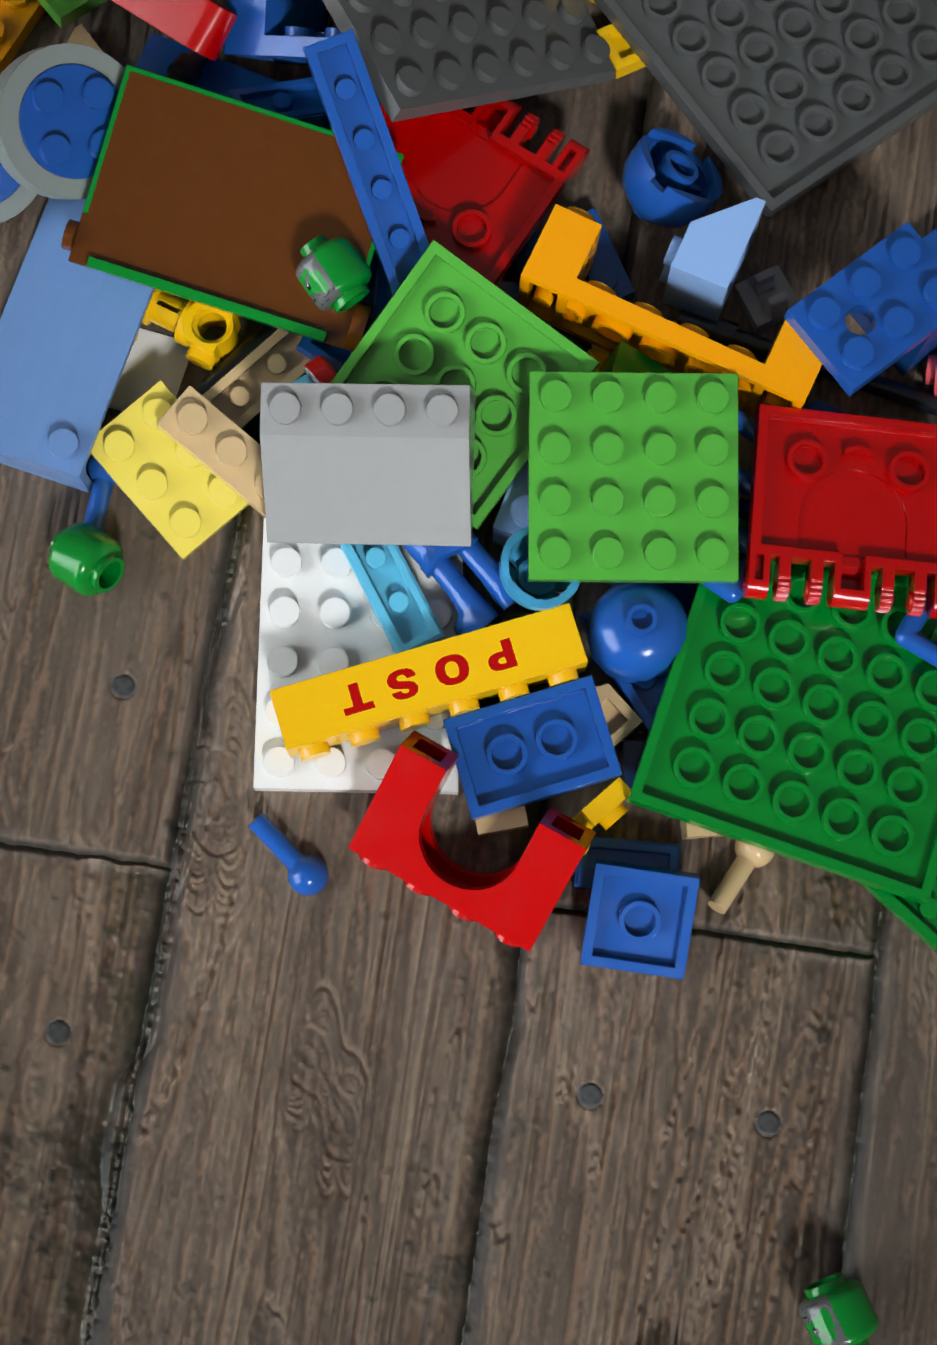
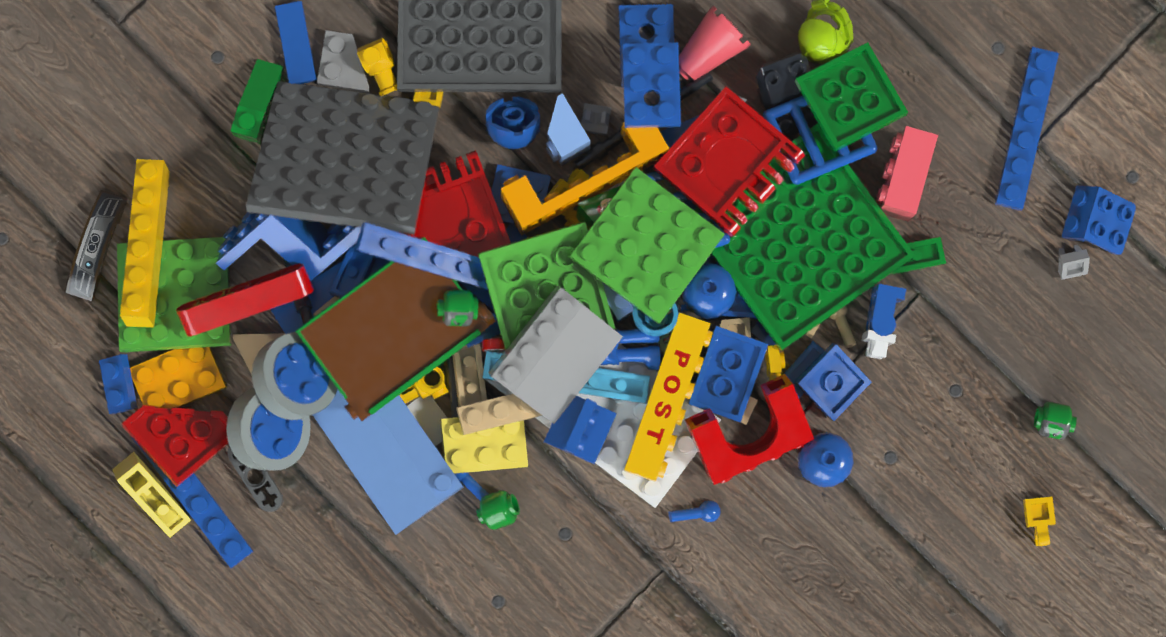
camera: 60 degrees left, 5 degrees up
(290, 591) = (581, 429): none -> blue bracket
(513, 996) = (826, 460): none -> blue cylinder
(788, 922) = (881, 319): none -> blue hips

